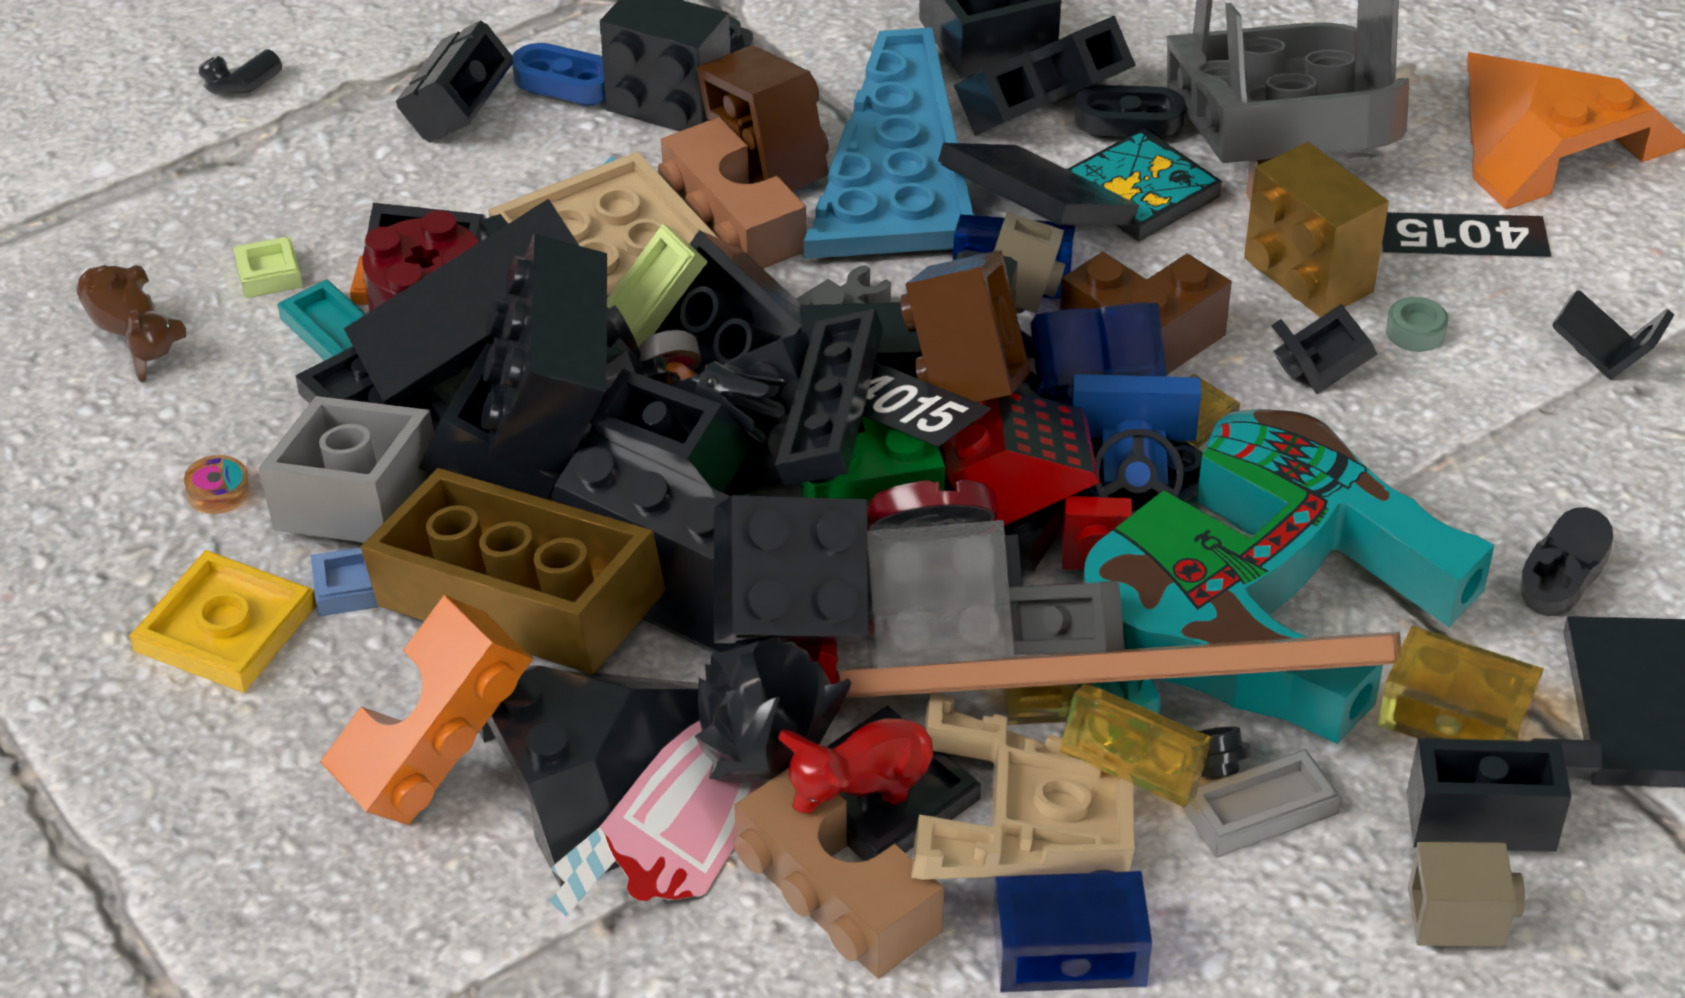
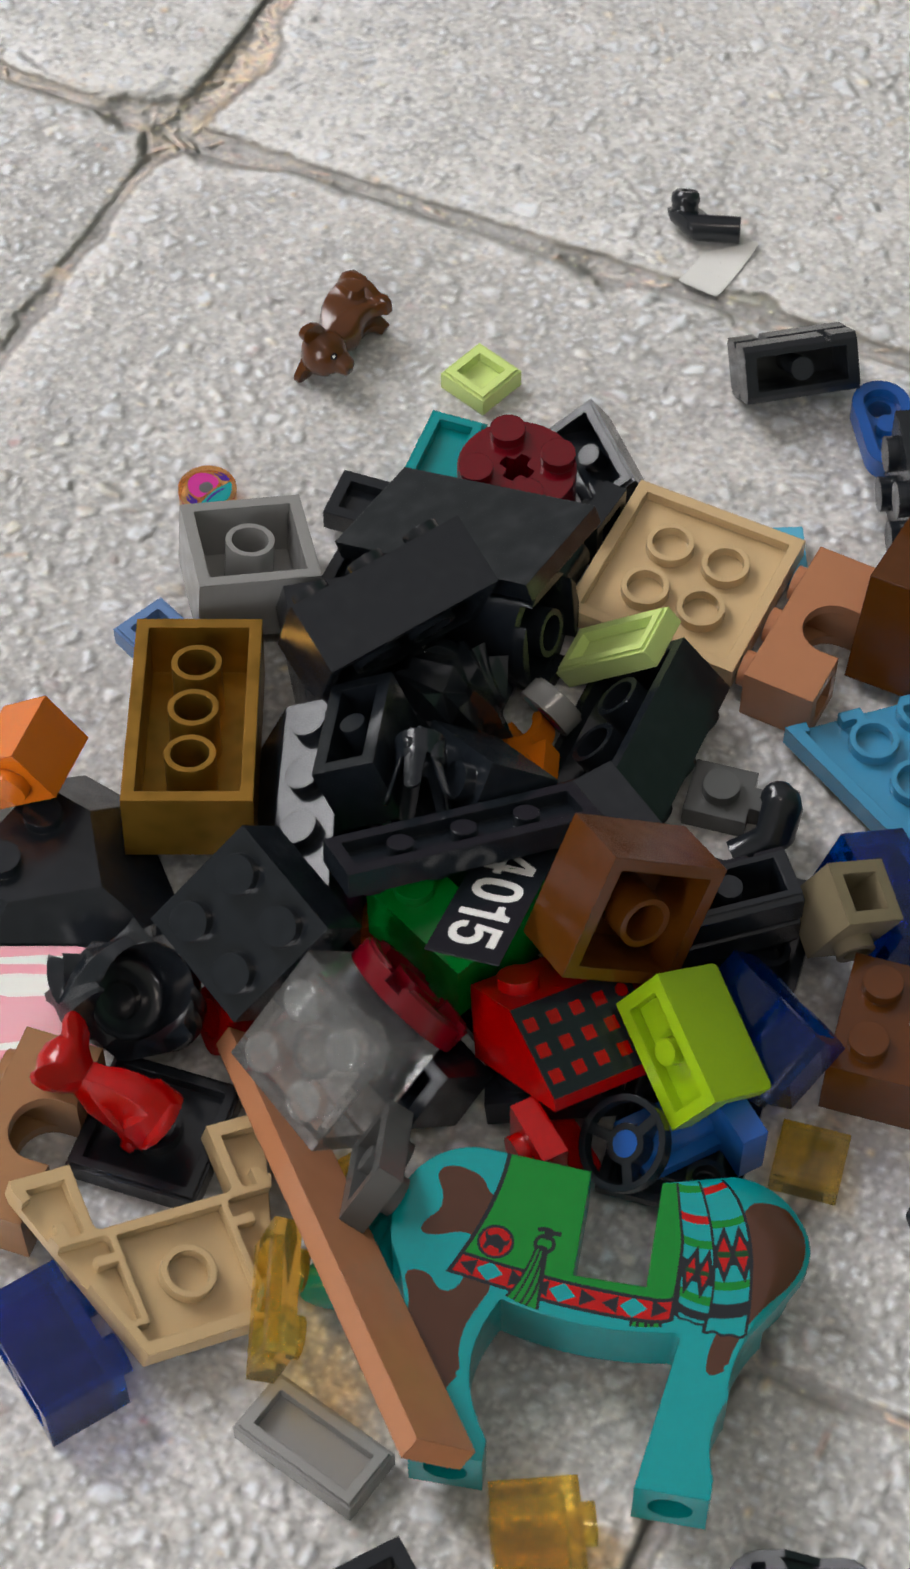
camera: 60 degrees right, 10 degrees up
(223, 621) = (63, 585): yellow tile -> none
(291, 92) = (718, 268): none -> white sticker
(884, 272) = (776, 822): none -> black arm
(1100, 381) = (692, 1043): none -> lime panel
(1224, 751) = (337, 1377): black plate -> none

